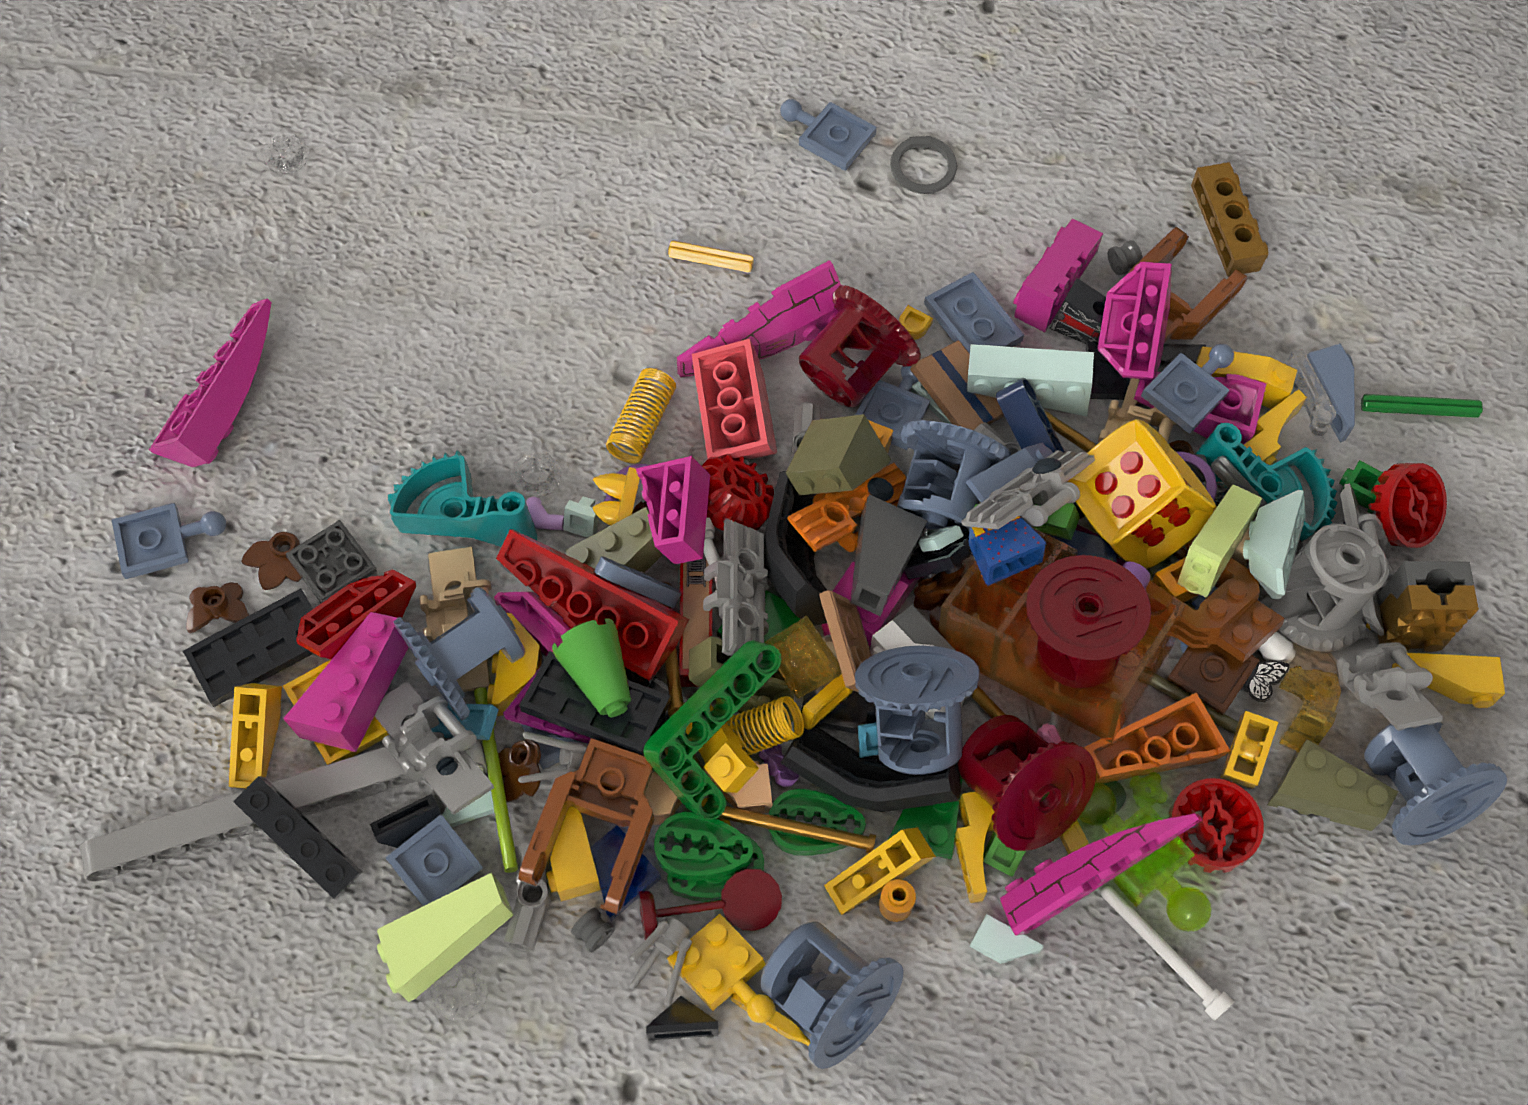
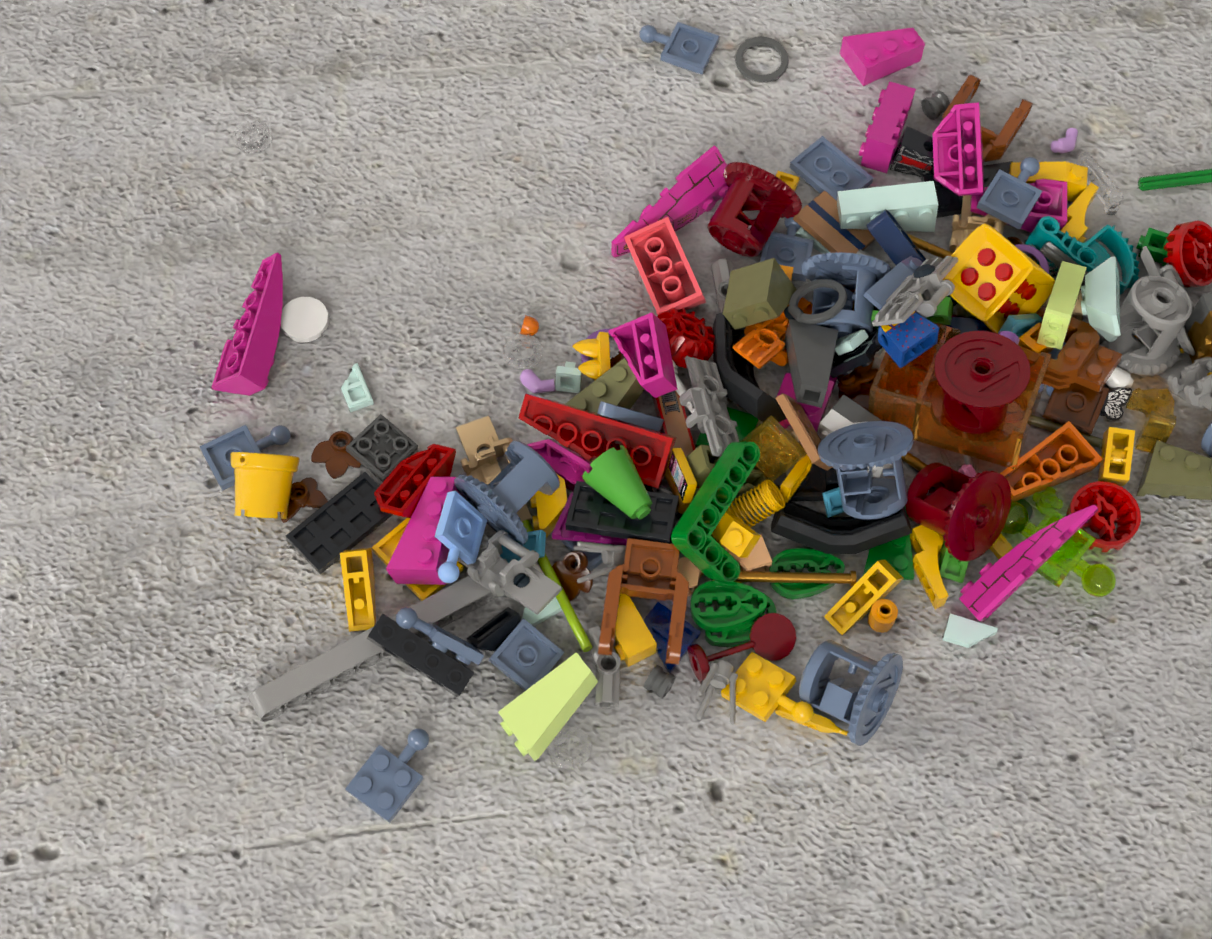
camera: 10 degrees left, 0 degrees up
(167, 581) = (263, 483): none -> yellow piece
(220, 986) = (388, 781): none -> sand blue plate
(283, 385) = (304, 319): none -> white tile
(321, 485) = (356, 391): none -> light aqua tile
(329, 820) = (439, 637): none -> sand blue plate
(386, 689) = (460, 531): none -> light blue plate
(476, 516) = (490, 392): teal arm -> none
(551, 443) = (530, 326): none -> orange hinge
(629, 439) = (597, 282): yellow piece -> none
(681, 1021) = (744, 735): black slope -> none
(682, 669) = (682, 475): none -> tile
(710, 256) = (614, 159): yellow axle -> none
(773, 757) = (772, 540): medium lavender piece -> none
(907, 500) = (801, 317): none -> dark grey piece
(1072, 182) = (881, 53): none -> dark pink wedge
(1157, 556) = (1020, 323): none -> medium azure tile
(1214, 1001) = (1131, 642): white piece -> none
(1229, 218) = (1007, 61): pearl gold brick -> none
(1279, 335) = (1065, 144): none -> lavender arm
(1336, 375) = (1118, 168): sand blue slope -> none

